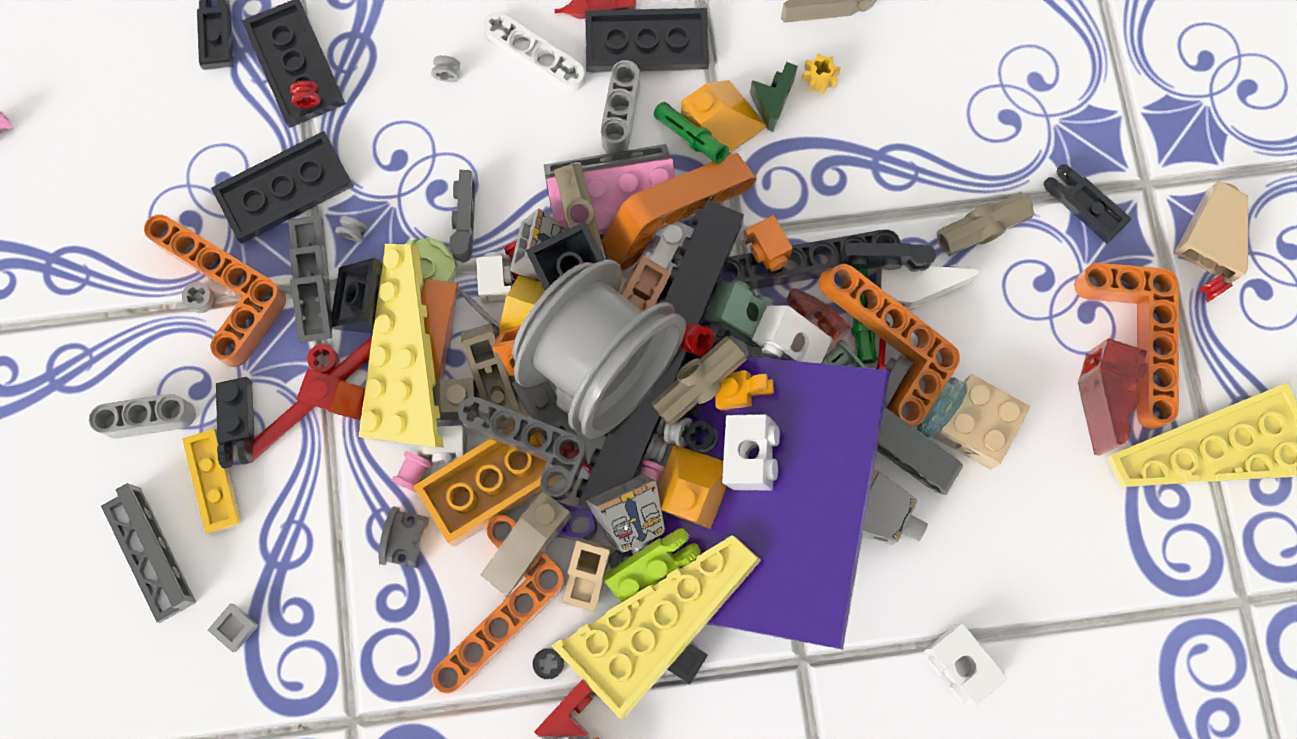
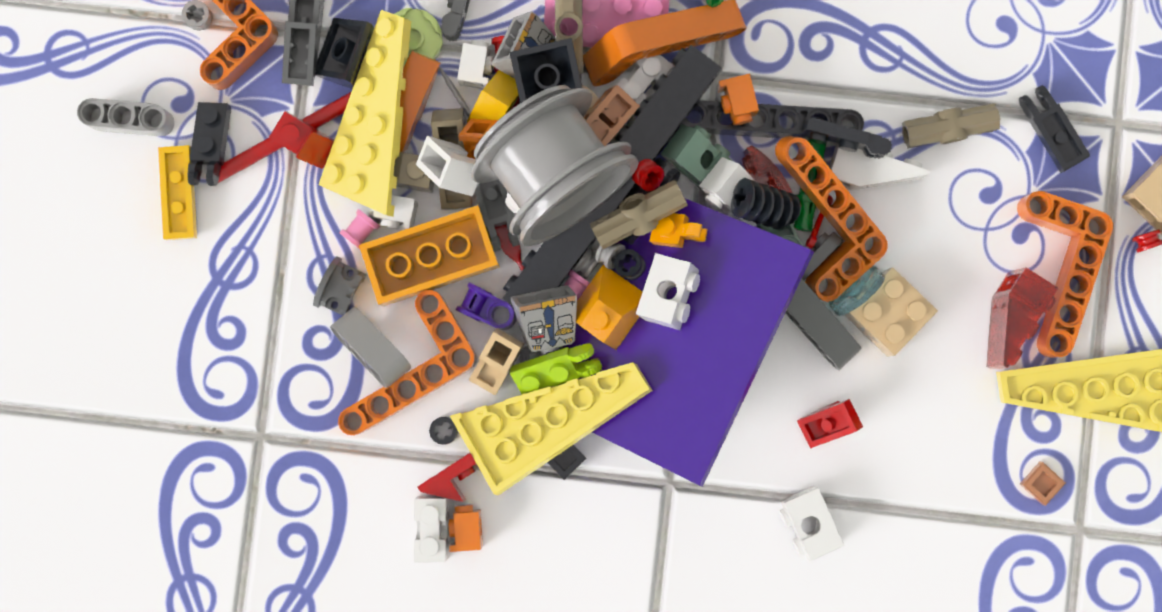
camera: 15 degrees right, 10 degrees up
(155, 549) = (115, 241): dark grey fence -> none
(233, 627) = (172, 329): light grey plate -> none
(313, 362) = (291, 103): red bush -> none
(450, 592) = (370, 347): none -> light grey beam
(488, 379) = (447, 165): none -> white brick
(520, 440) = (464, 228): dark grey beam -> none
(526, 543) = (447, 322): slope -> none
(824, 340) = (764, 204): none -> black piece
(890, 512) = (783, 372): light grey torso -> none
(954, 552) = (830, 423): none -> slope
(1190, 561) = (1042, 483): none -> nougat tile

